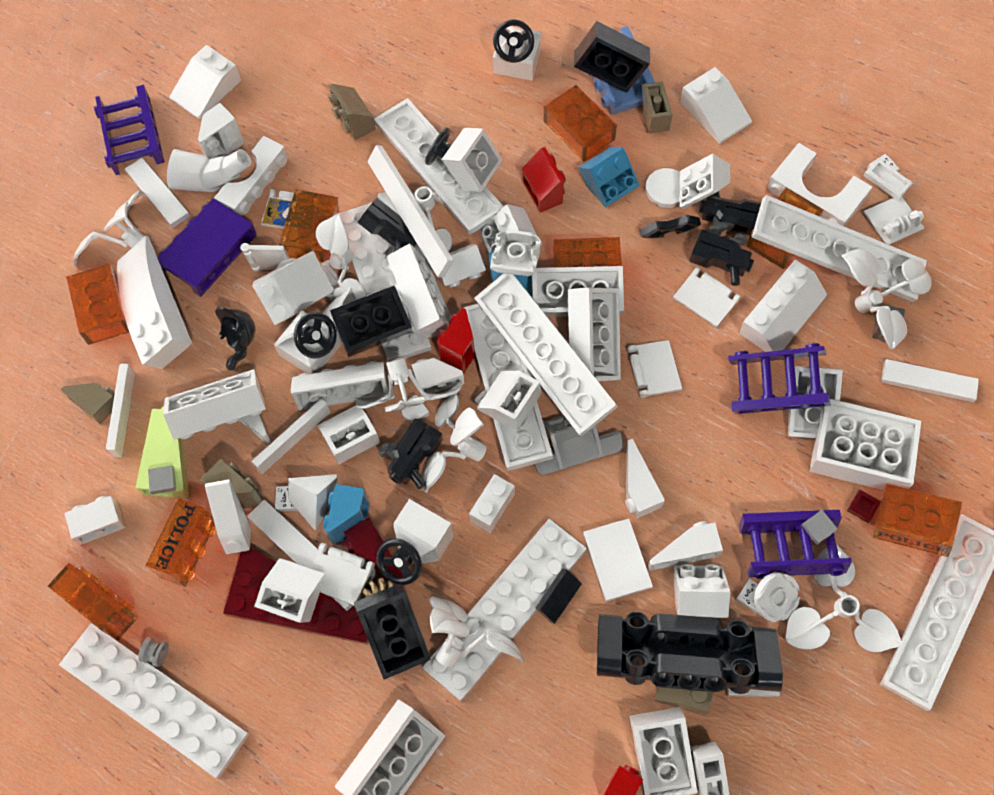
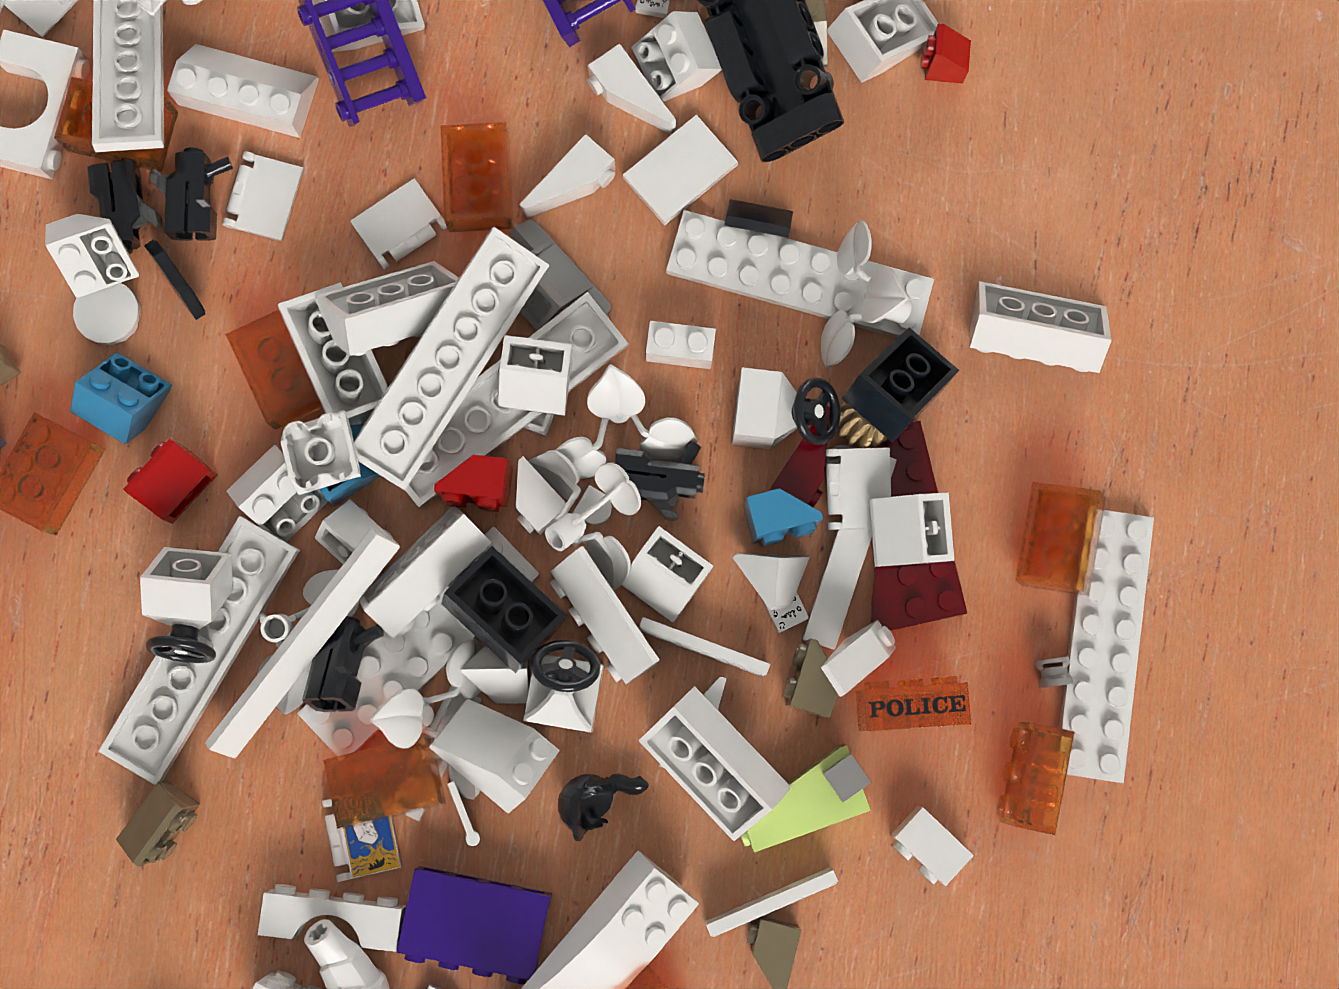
camera: 120 degrees left, 15 degrees up
(233, 695) = (1060, 538): none -> clear orange brick
(663, 421) = (477, 177): none -> clear orange brick

